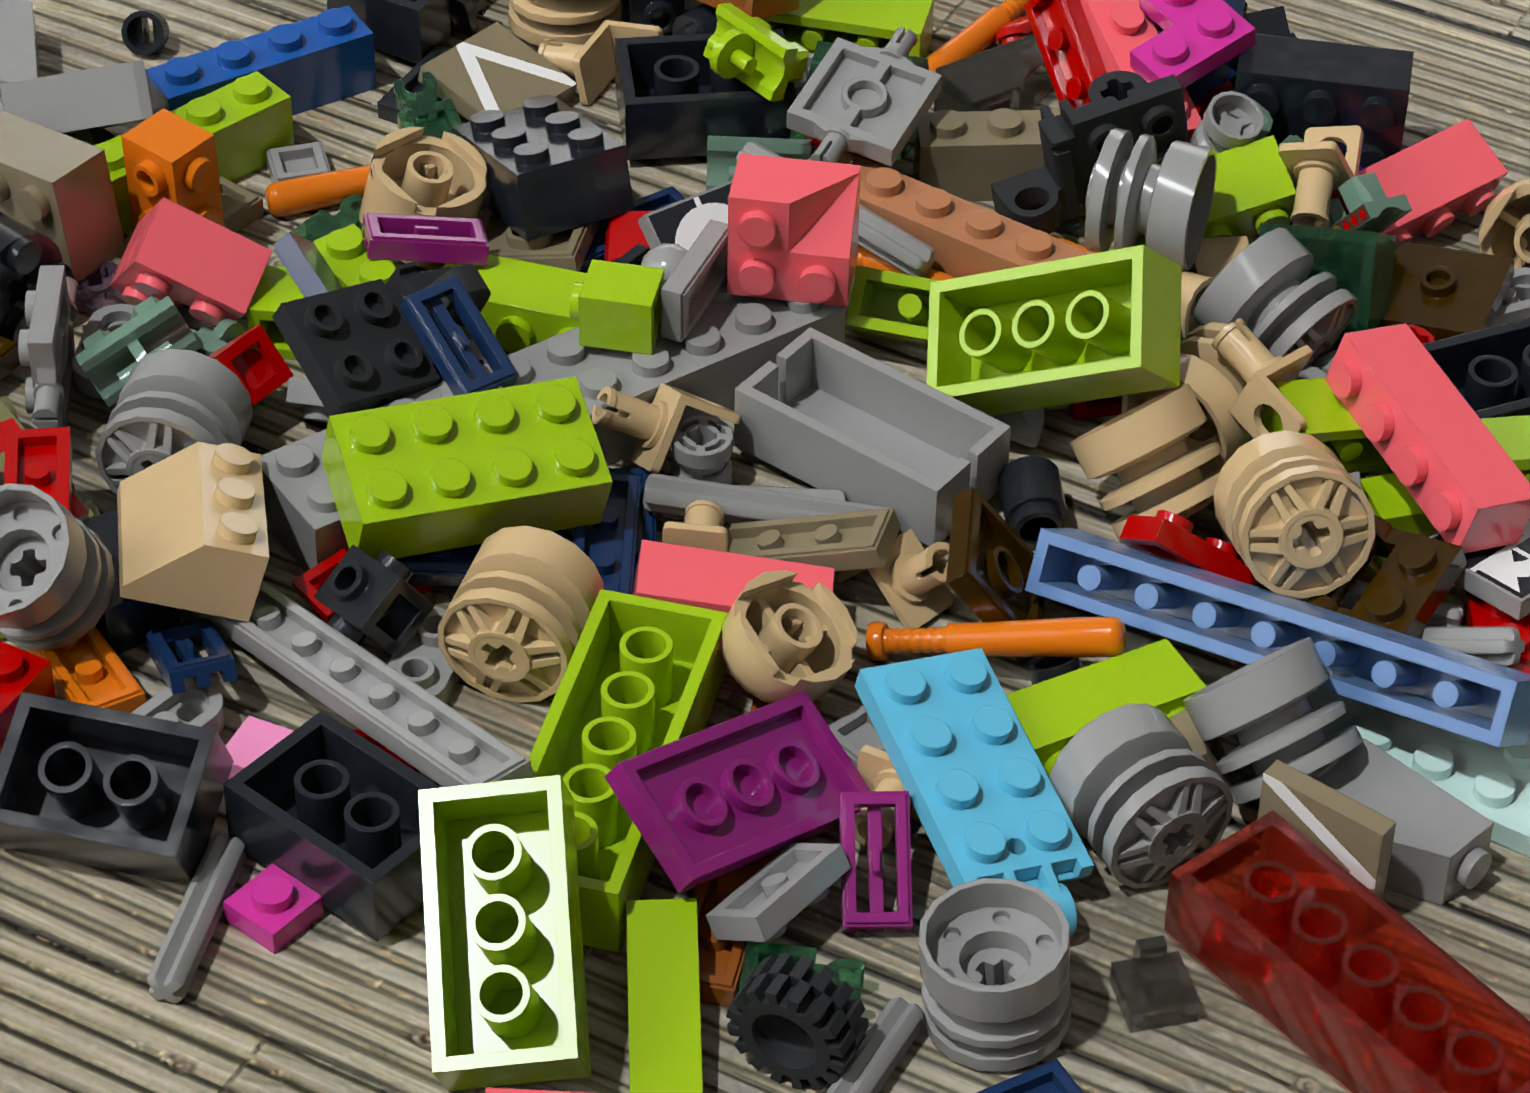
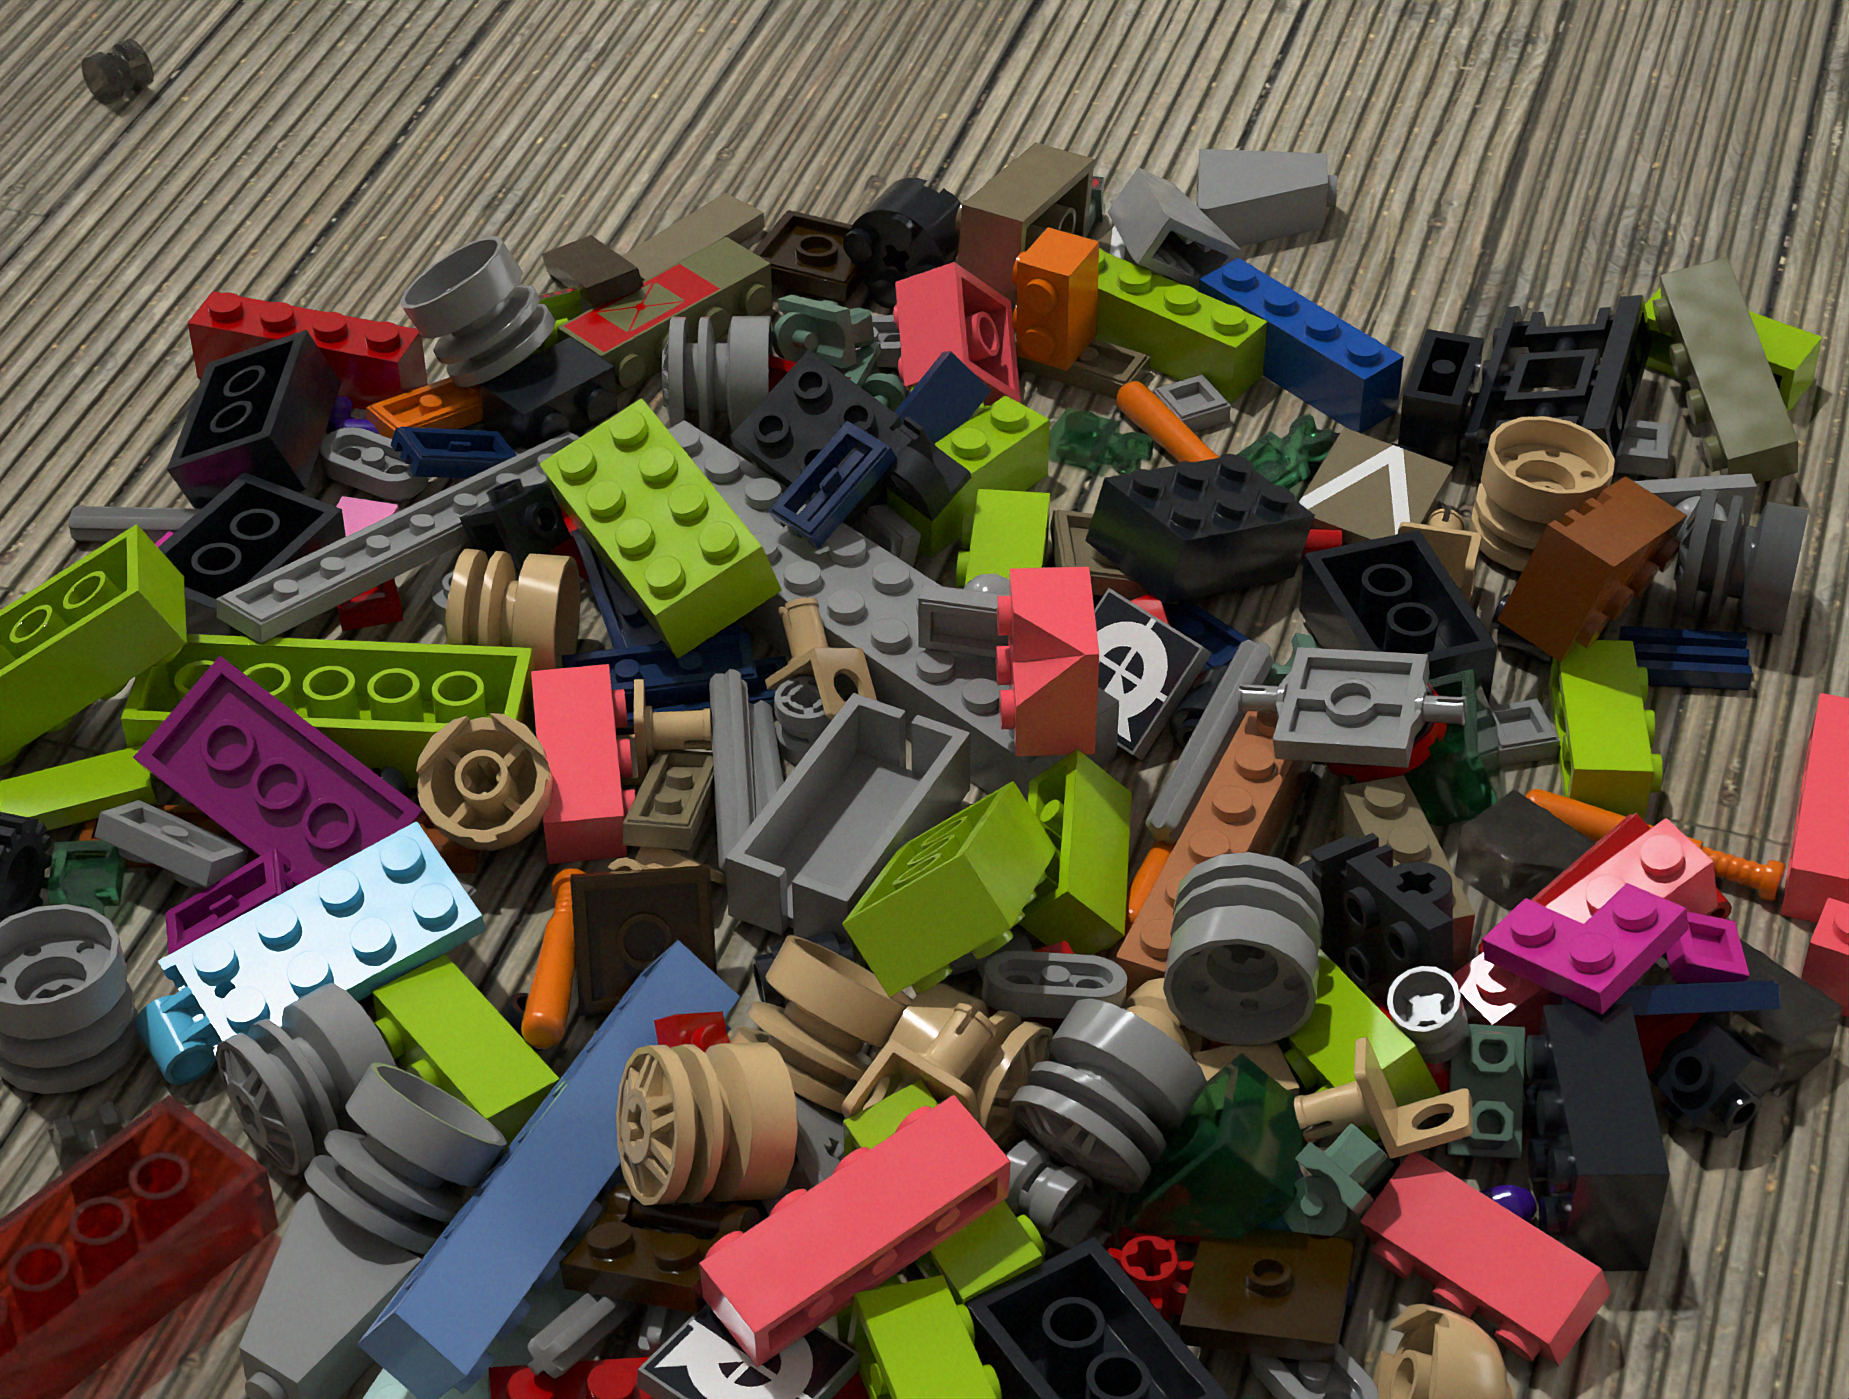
camera: 80 degrees right, 0 degrees up
(41, 459) = (614, 305): red plate -> none
(49, 346) = (815, 269): light grey plate -> none
(136, 32) = (1356, 273): black hinge -> none
(195, 531) = (546, 406): tan slope -> none
(425, 177) = (1121, 438): tan brick -> none
(425, 238) = (1020, 460): magenta tile -> none
(618, 306) = (916, 561): lime brick -> none
(754, 53) = (1392, 605): lime hips -> none
(1334, 822) = (241, 1231): dark tan tile -> none

